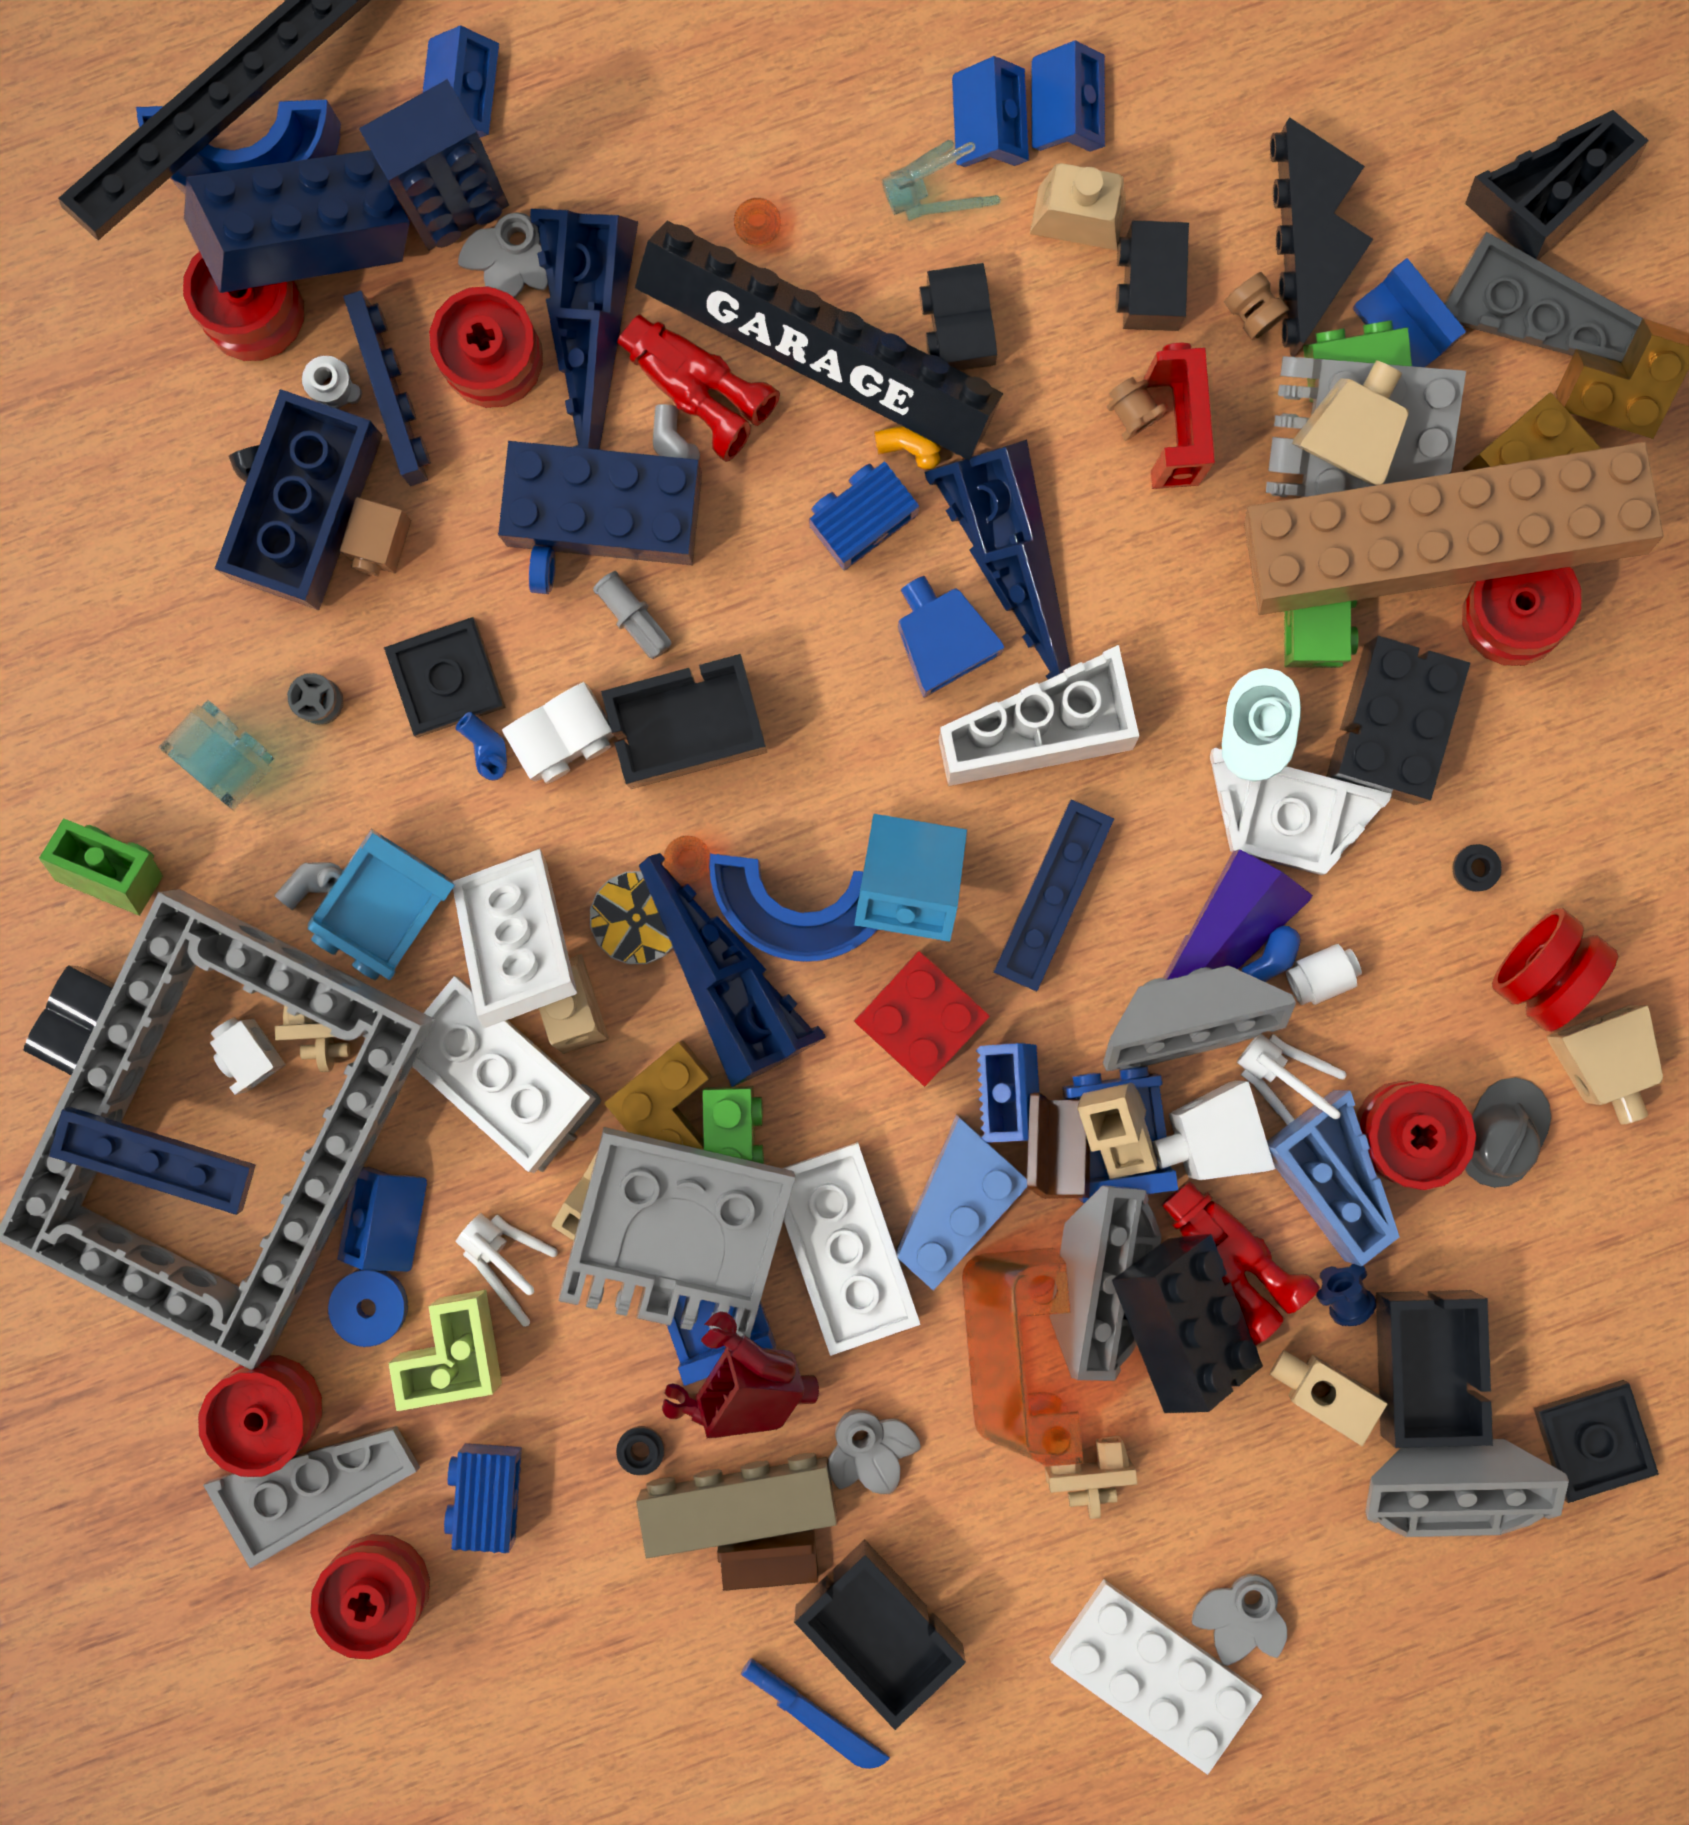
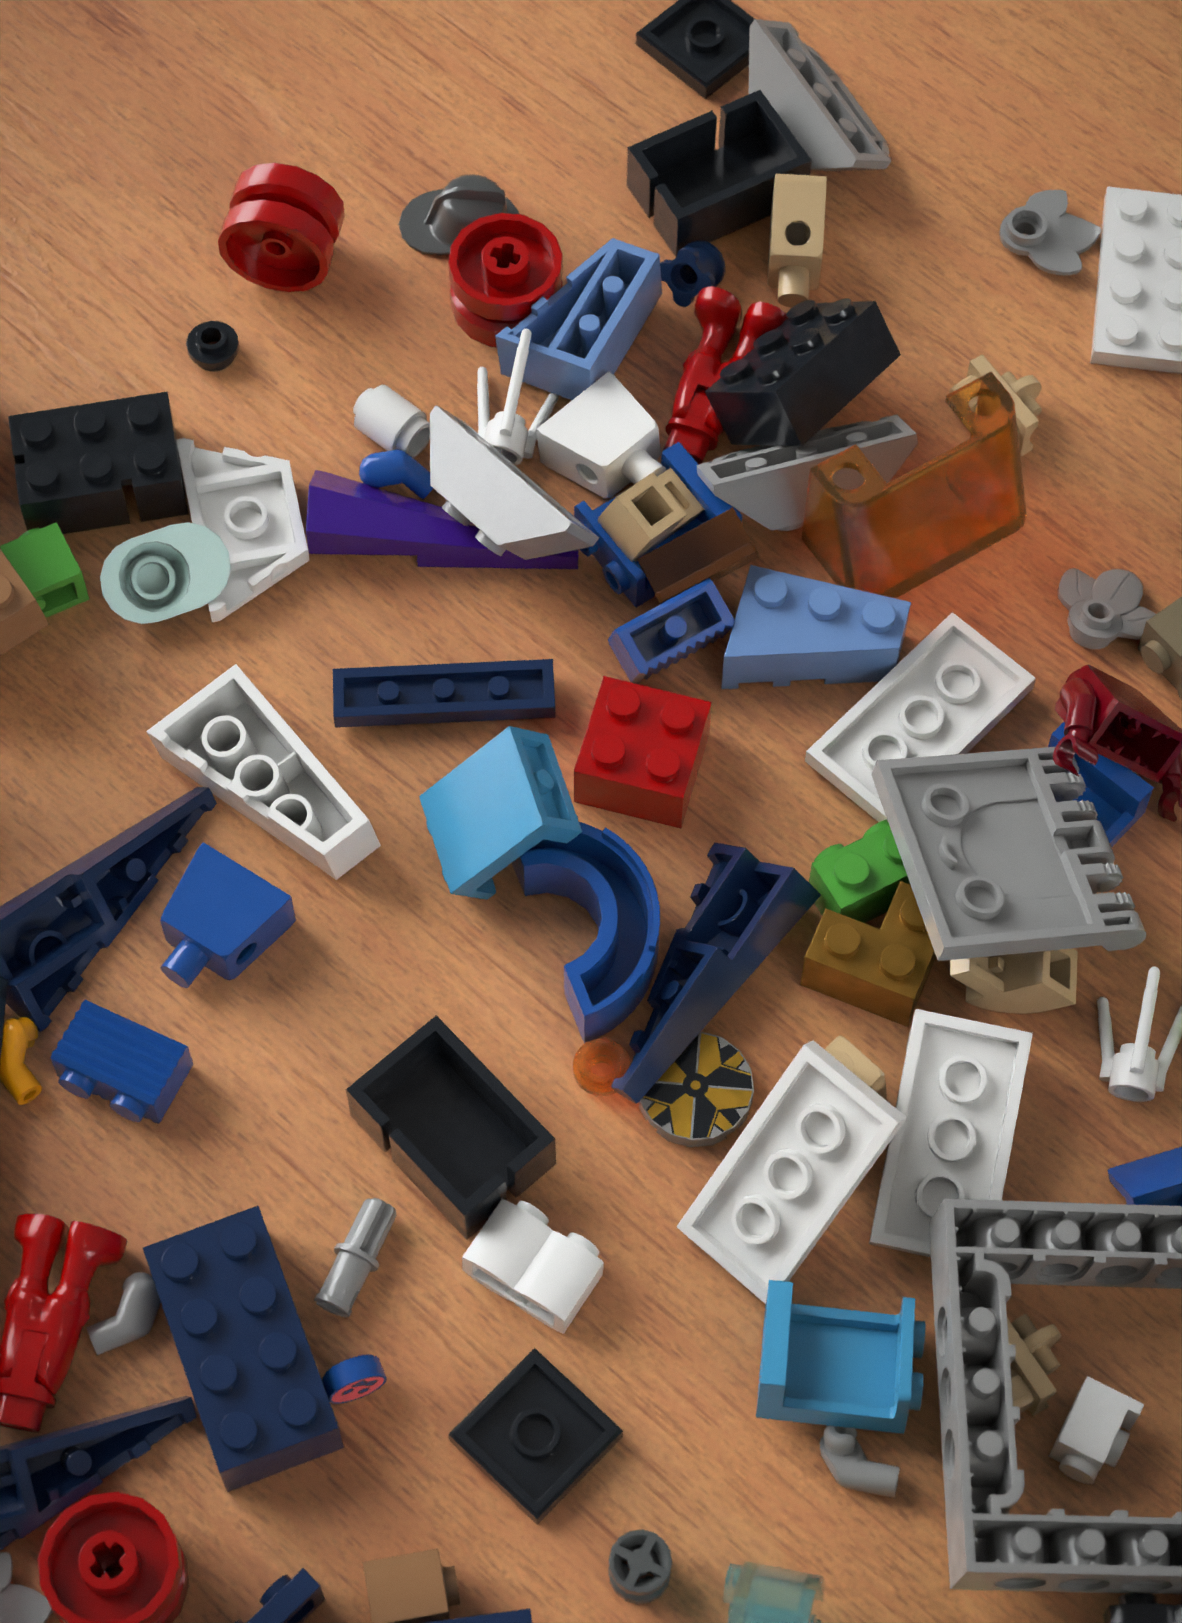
camera: 120 degrees left, 25 degrees down
(488, 746) = (592, 1341): blue arm -> none
(1612, 1059) = (345, 154): tan torso -> none

